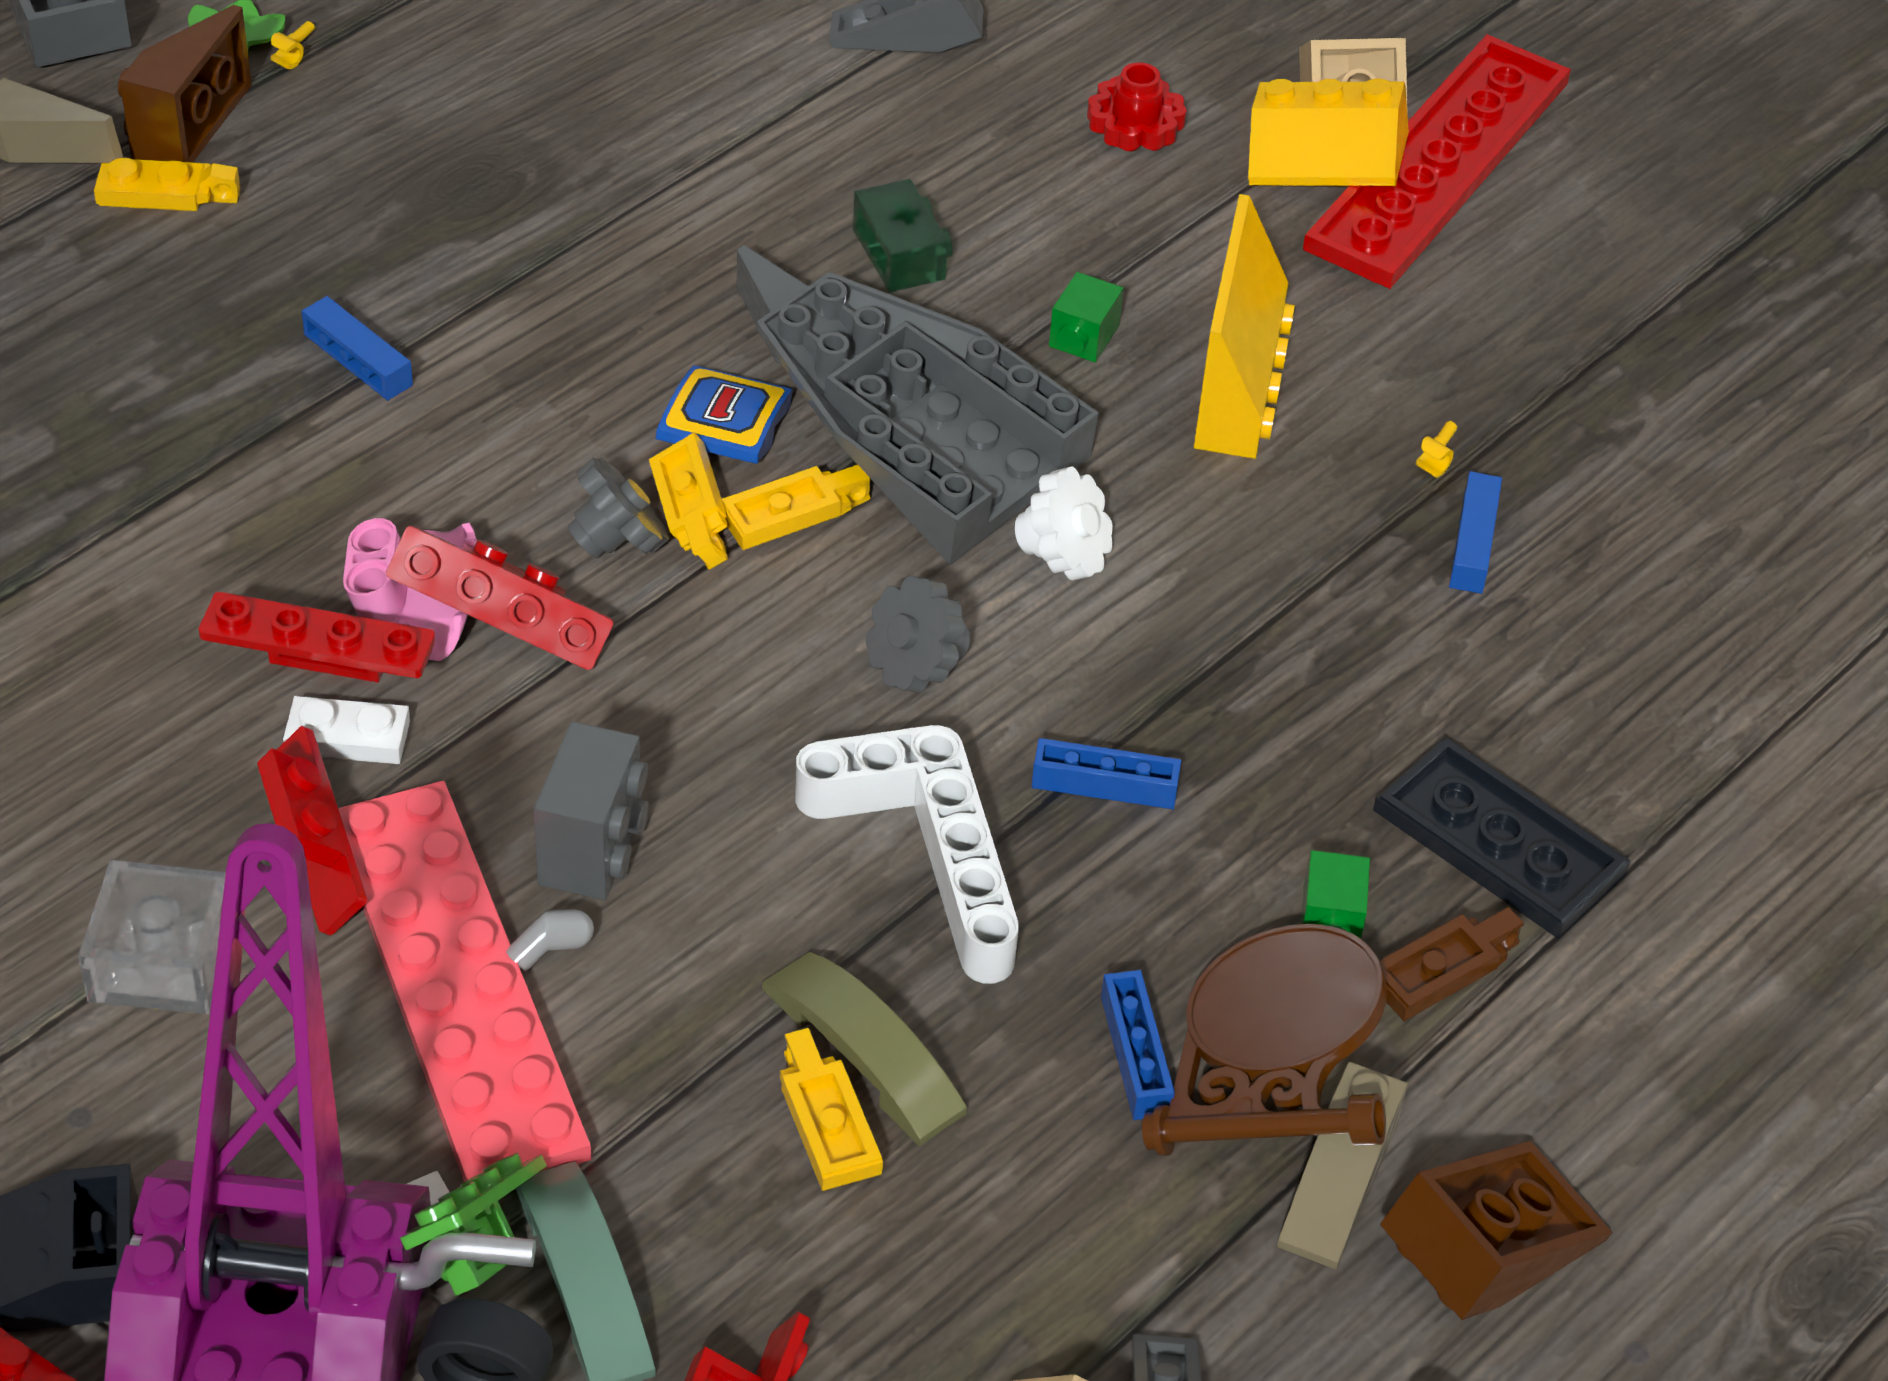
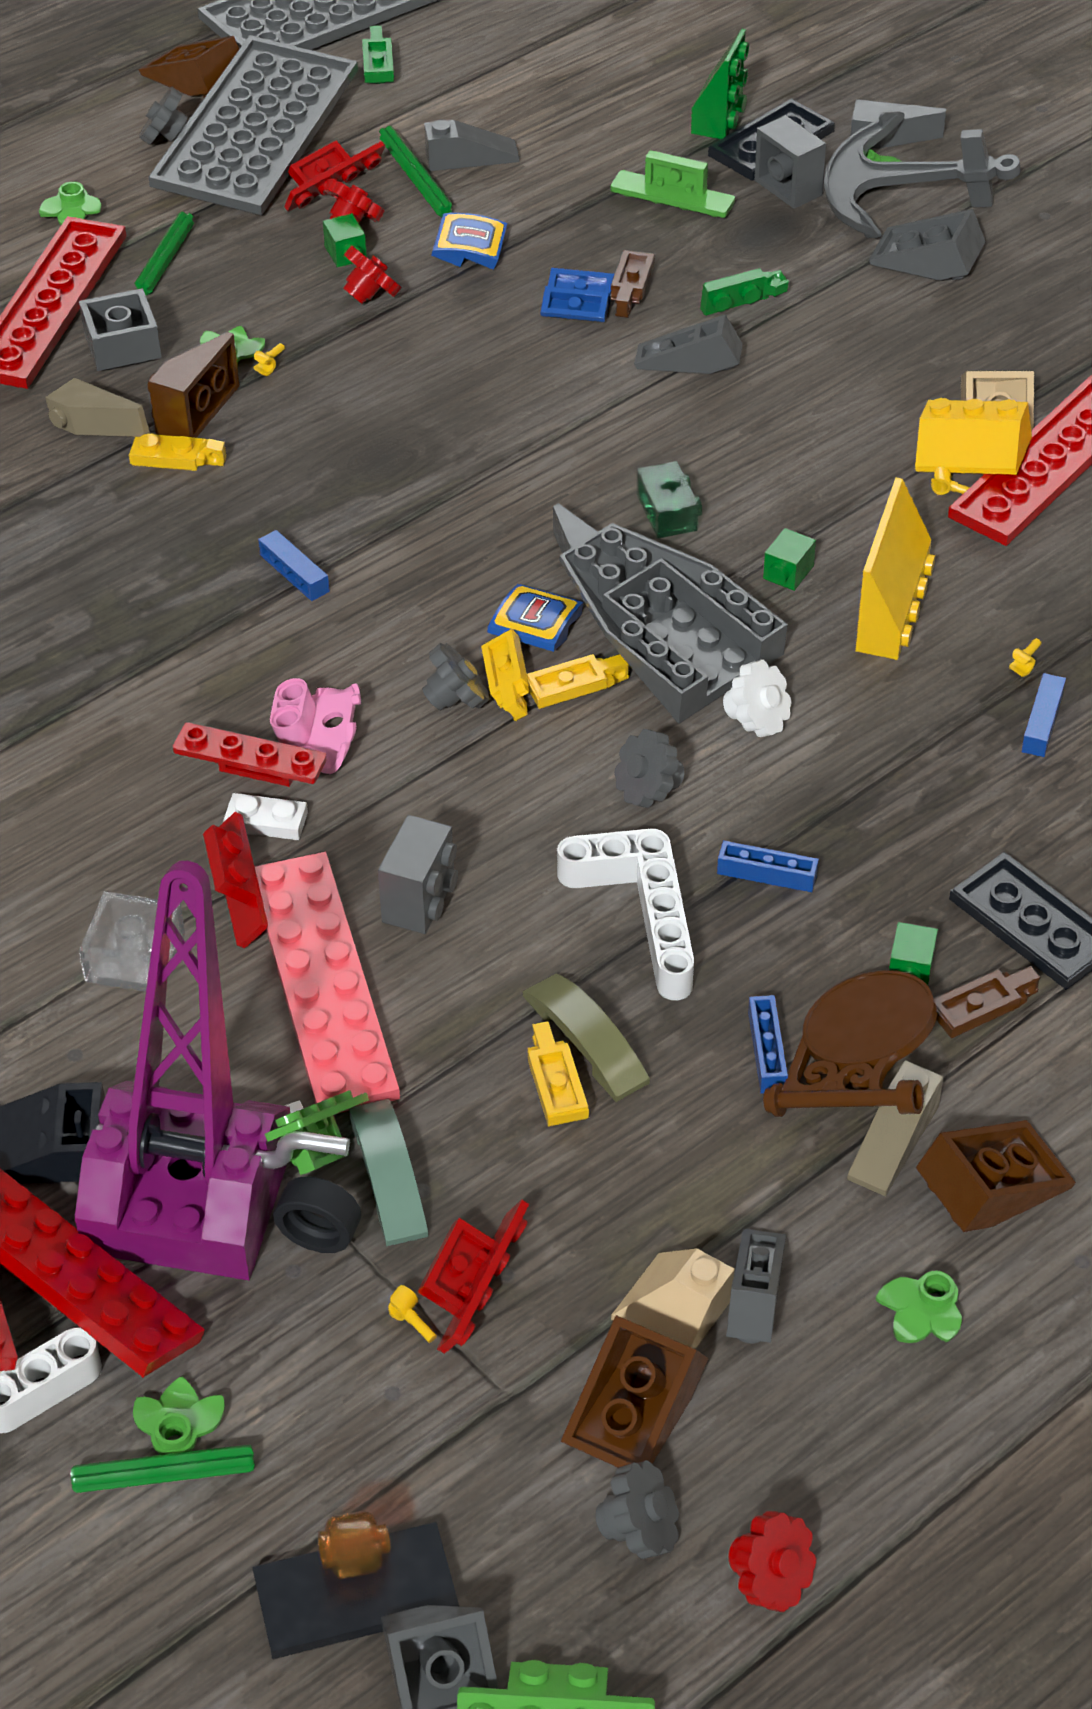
camera: 10 degrees right, 0 degrees up
(501, 594) = (372, 731): bracket -> none
(551, 931) = (386, 952): light grey arm -> none
(1136, 109) = (842, 417): red plant -> none
(1291, 201) = (942, 482): none -> yellow hand

